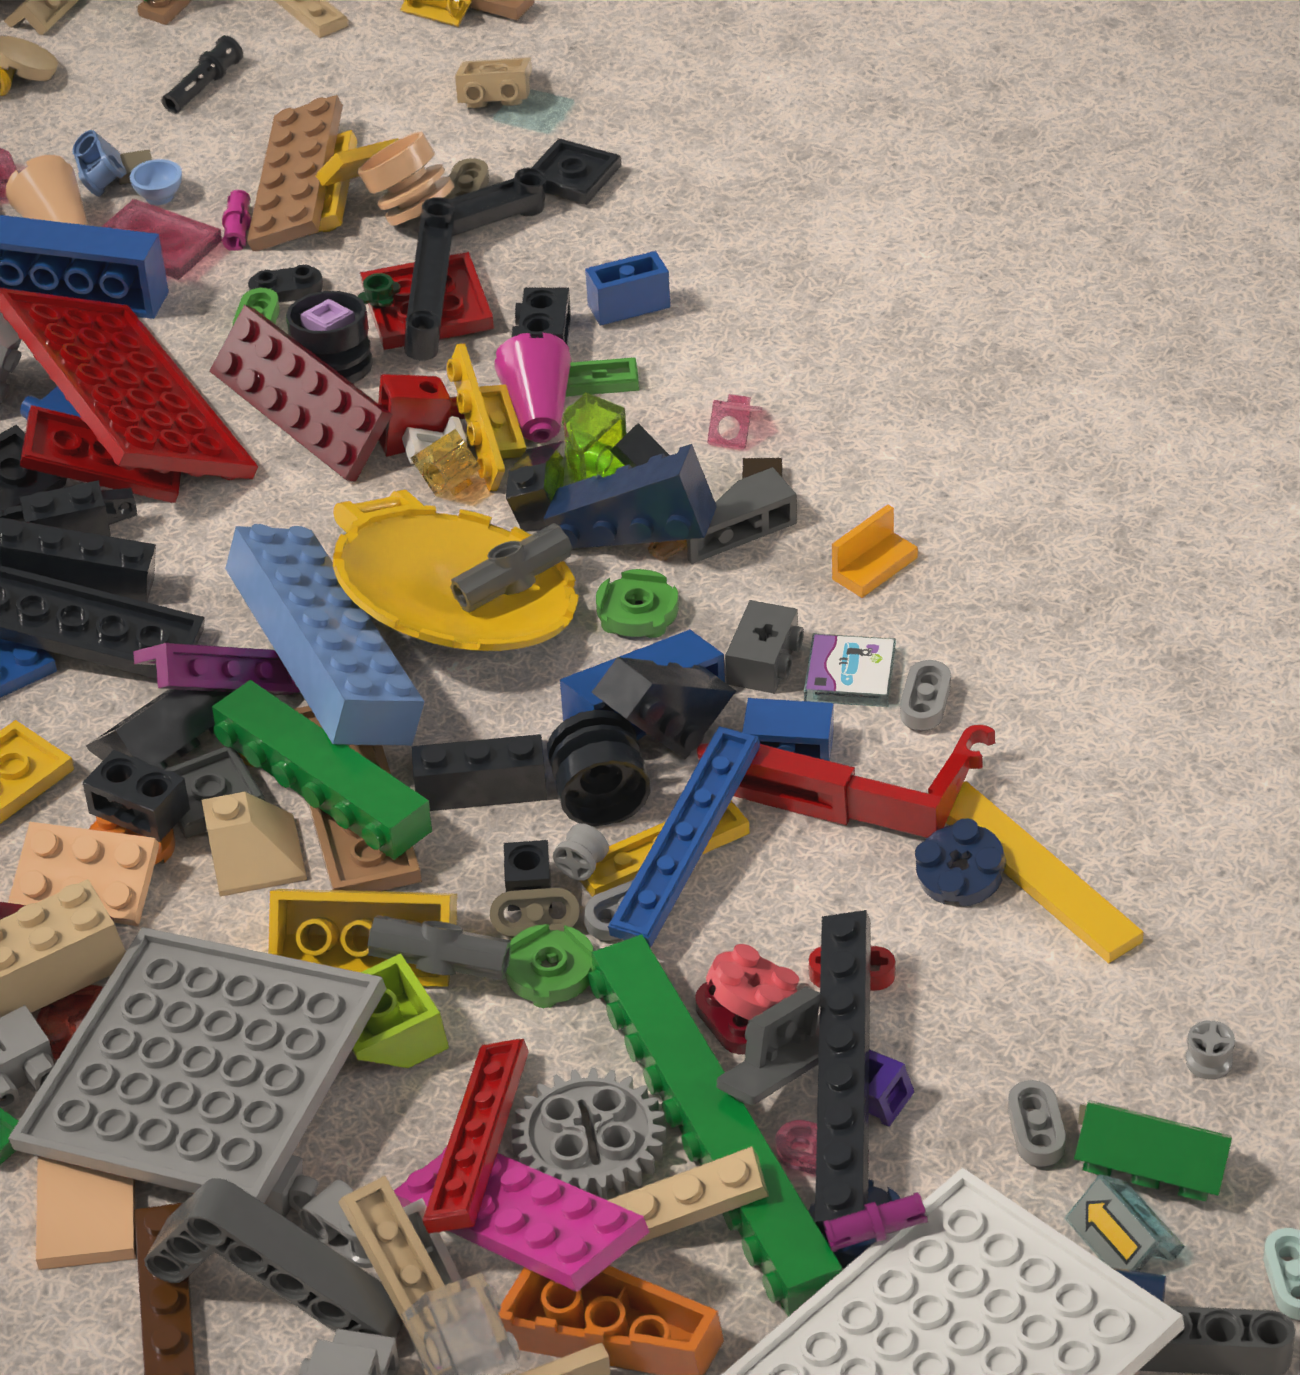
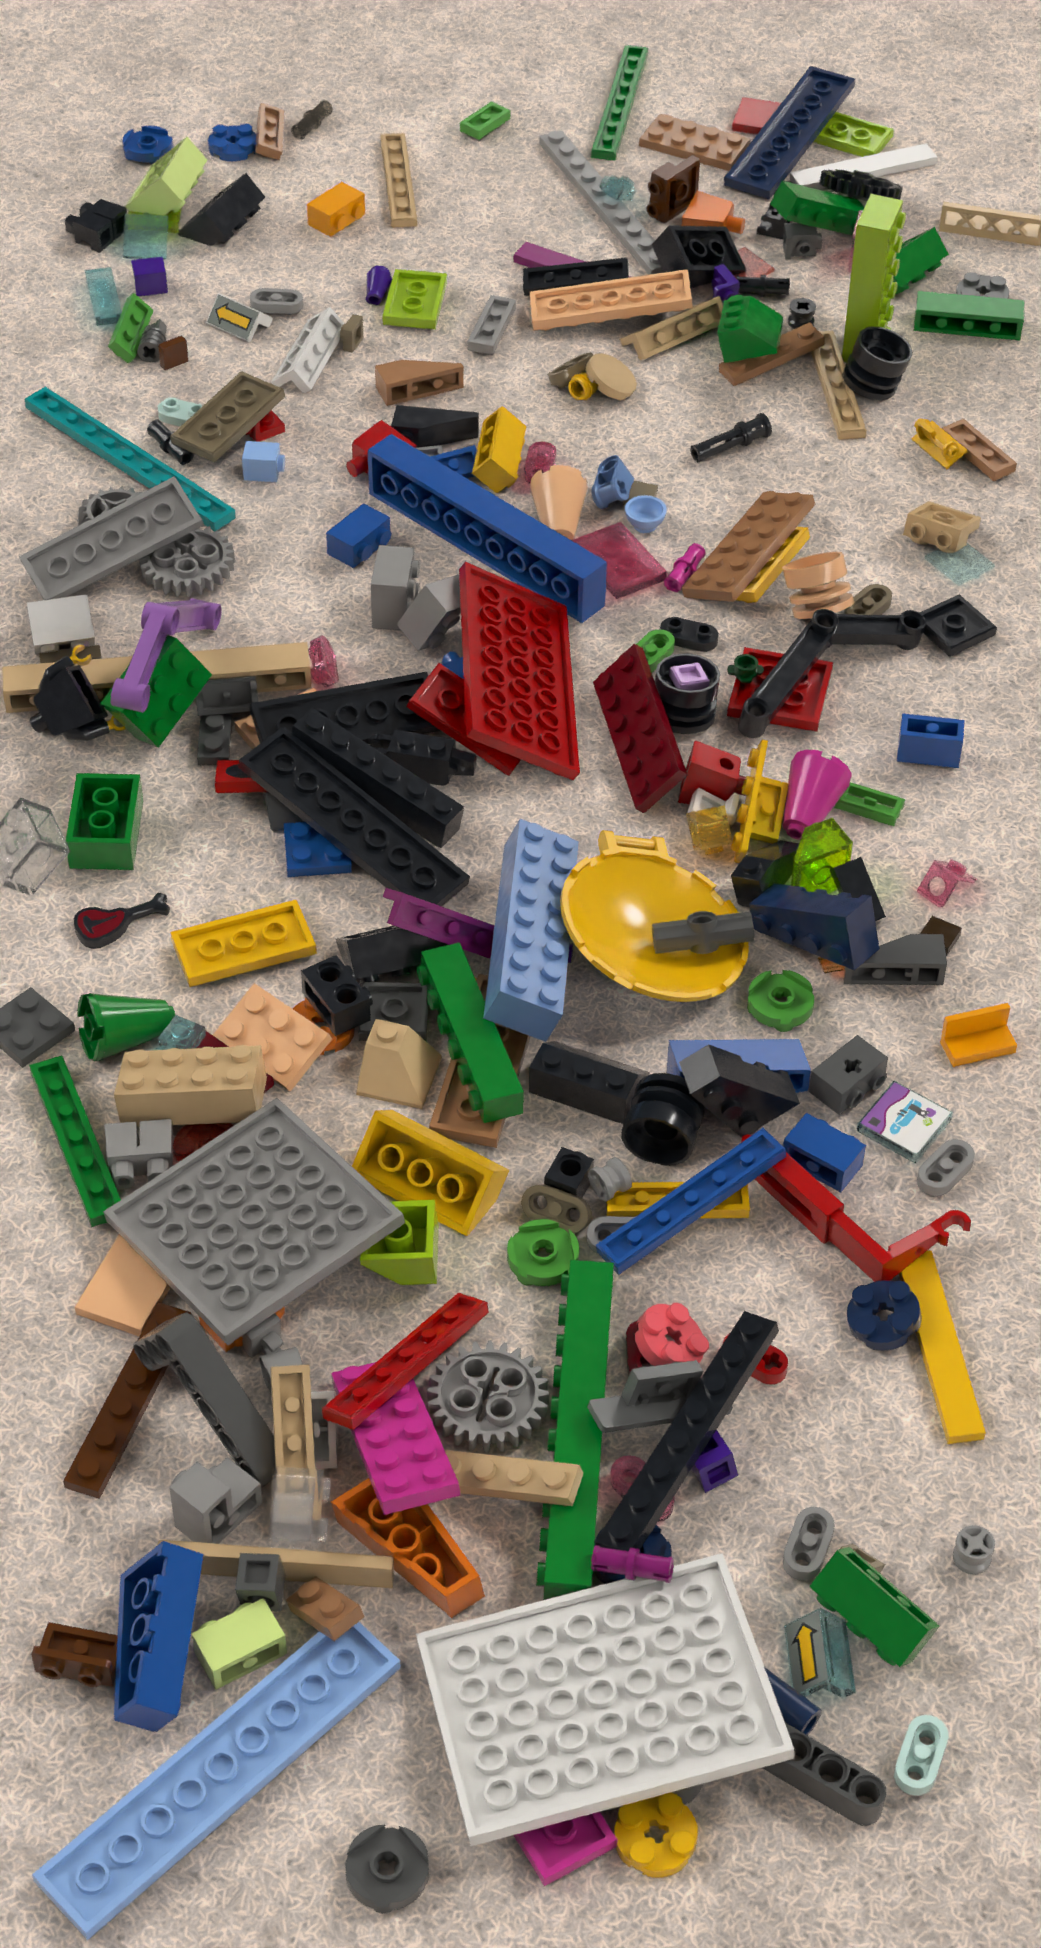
camera: 25 degrees right, 5 degrees up
(345, 164) = (780, 556): yellow tile -> none
(440, 947) = (467, 1207): dark grey piece -> none
(543, 312) = (854, 741): black brick -> none

